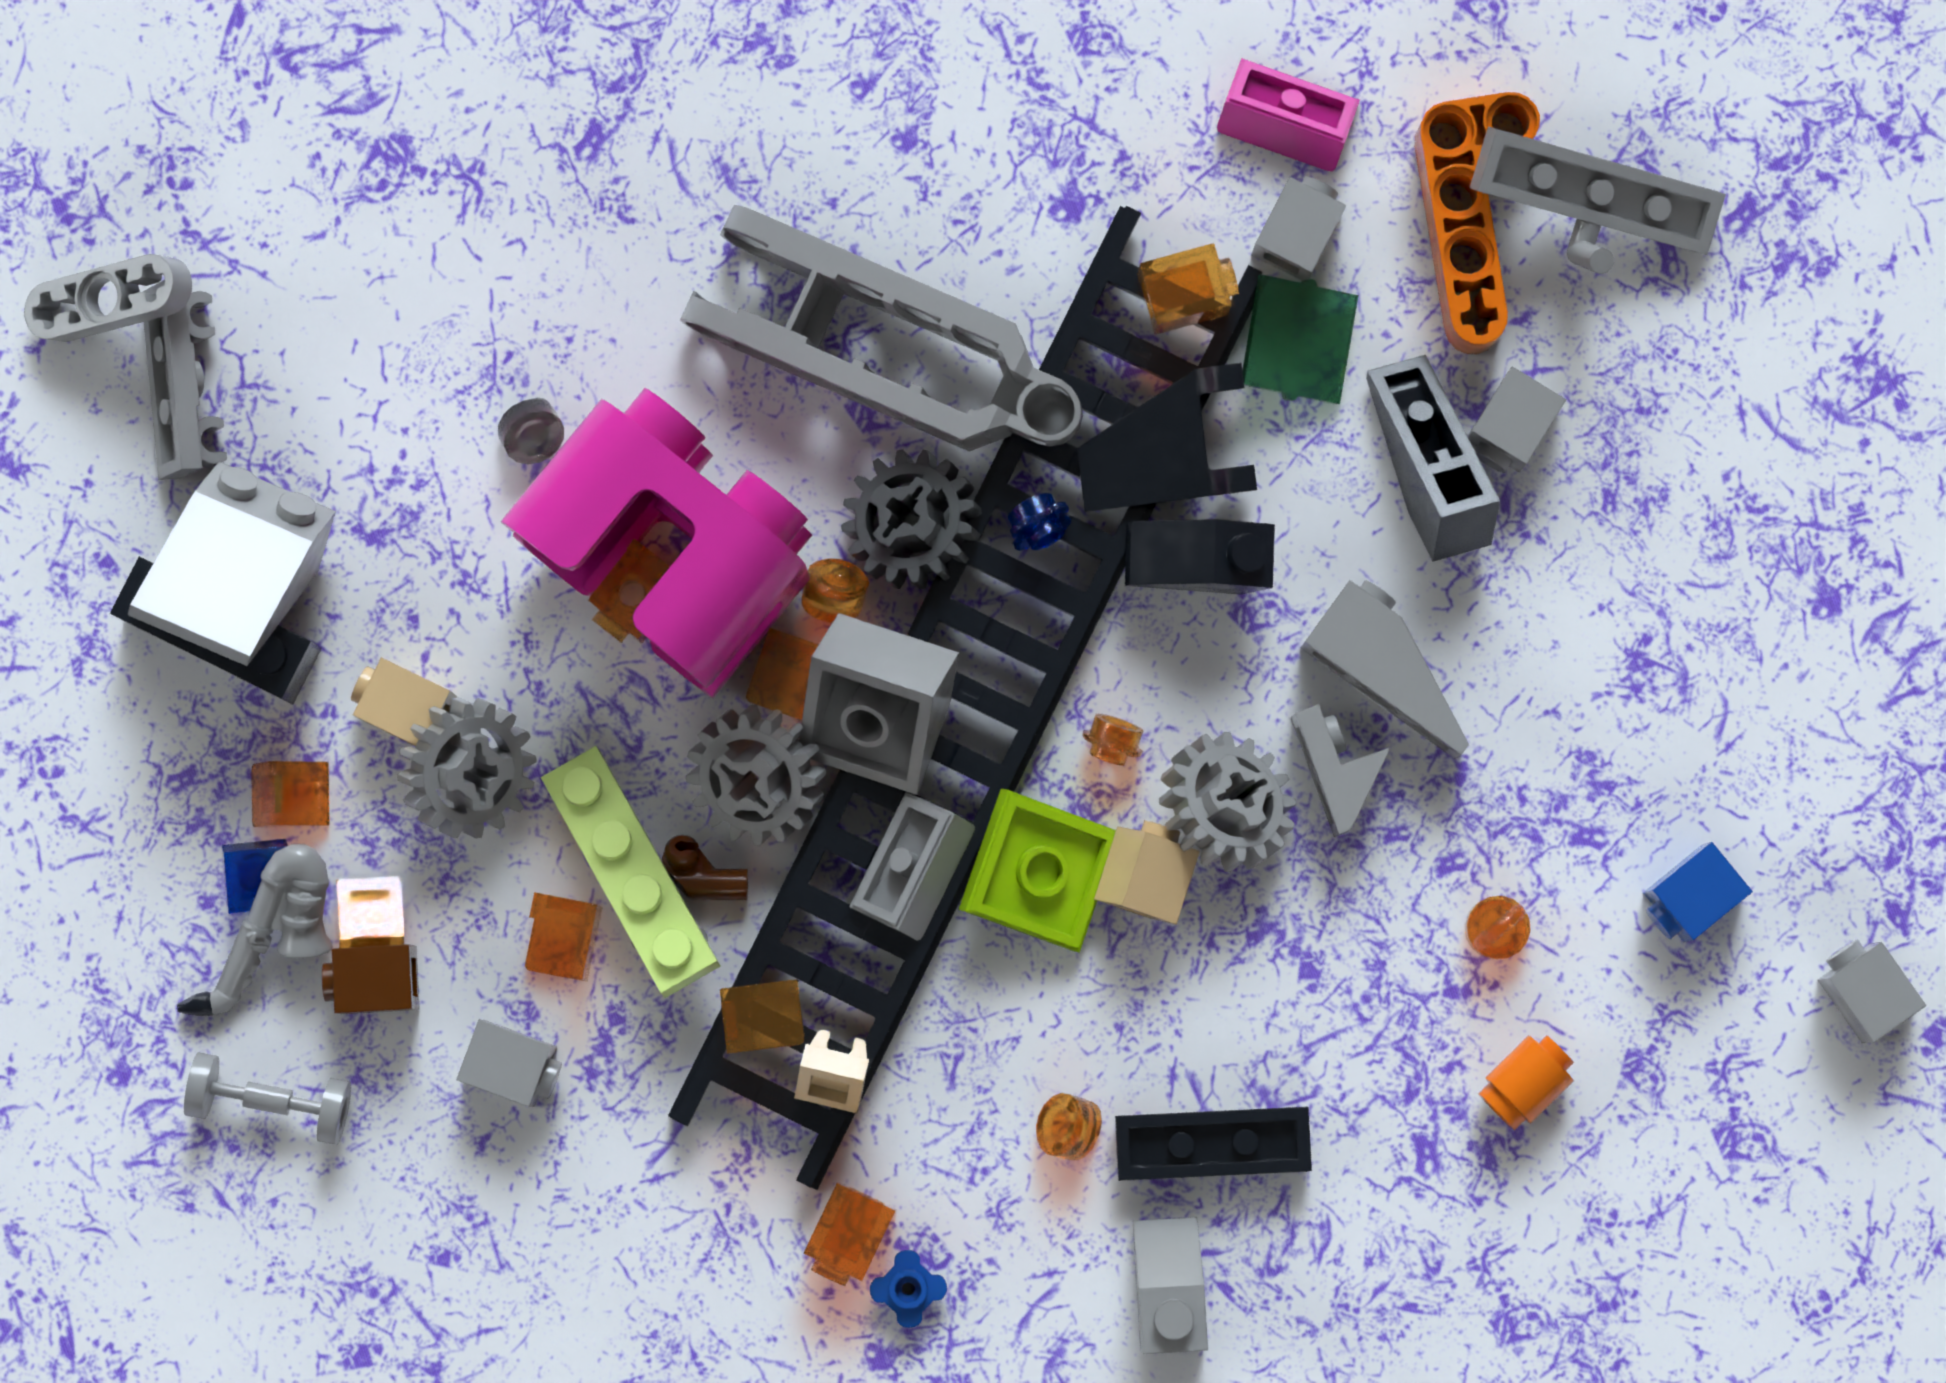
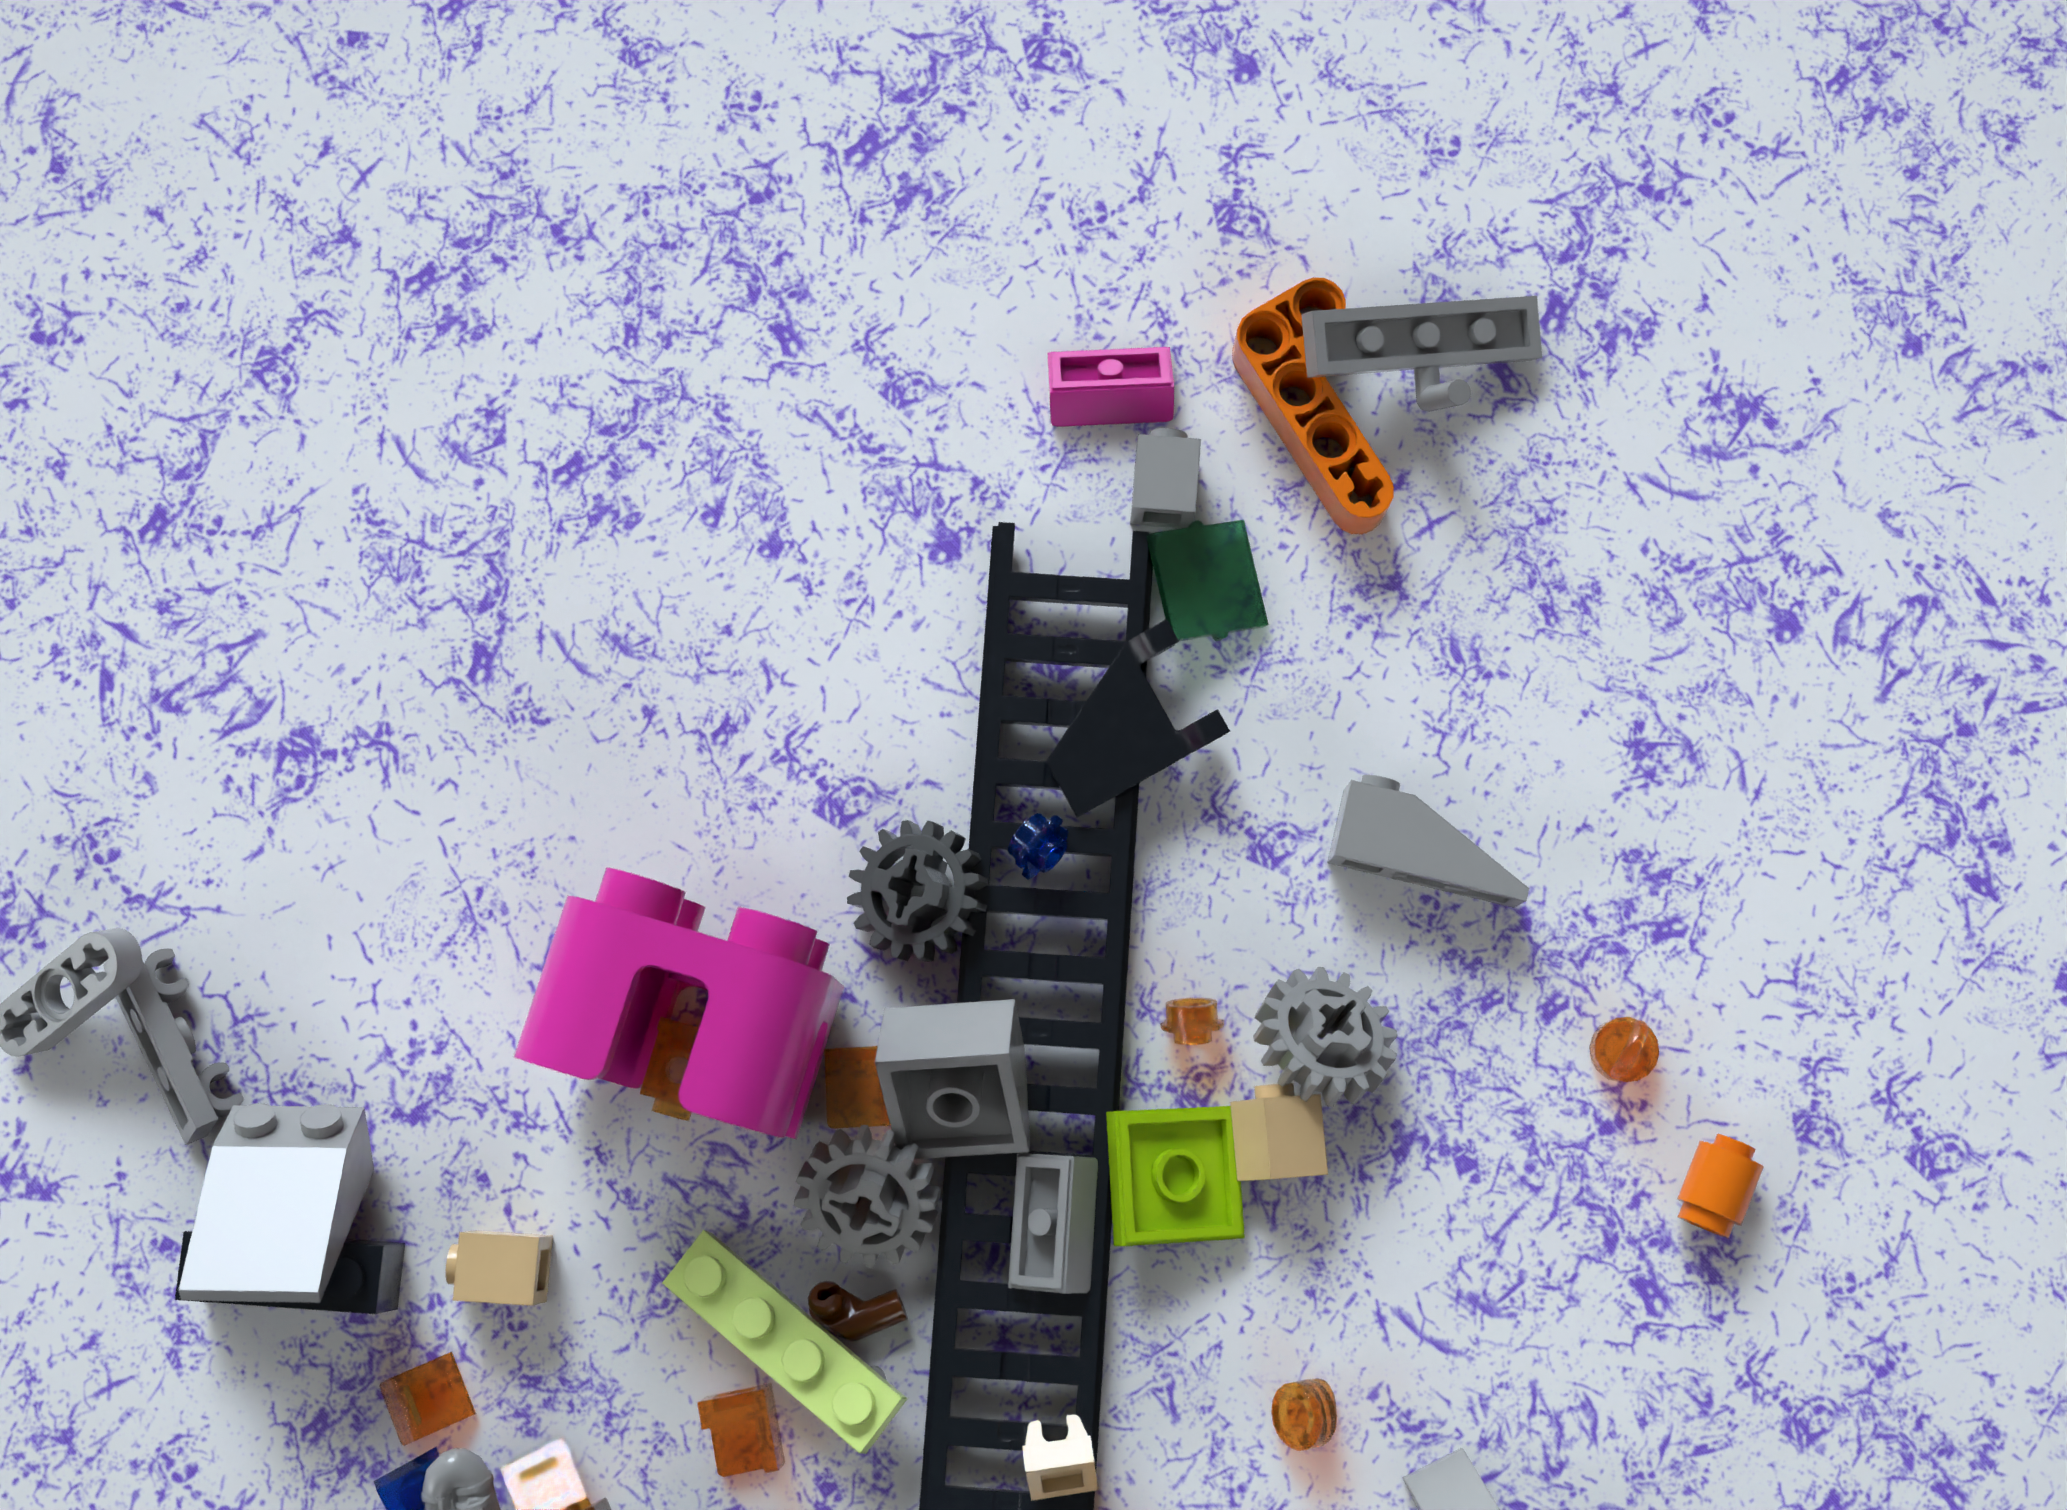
camera: 20 degrees left, 5 degrees down
(459, 760) = (559, 1297): light grey gear -> none
(531, 431) = (521, 953): clear smoke tile -> none
(762, 1016) = (967, 1435): clear orange panel -> none
(834, 589) = (871, 986): clear orange tile -> none
(1023, 404) = (979, 735): light grey piece -> none
(1187, 288) = (1086, 571): clear orange brick -> none
(1200, 555) = (1202, 814): black slope -> none
(1213, 1143) = (1449, 1371): black plate -> none
(1339, 786) = (1423, 978): light grey slope -> none
(1433, 459) = (1379, 640): black slope -> none
(1514, 421) = (1436, 574): light grey brick -> none
(1695, 894) = (1795, 941): blue brick -> none
(1870, 990) = (1997, 965): light grey brick -> none

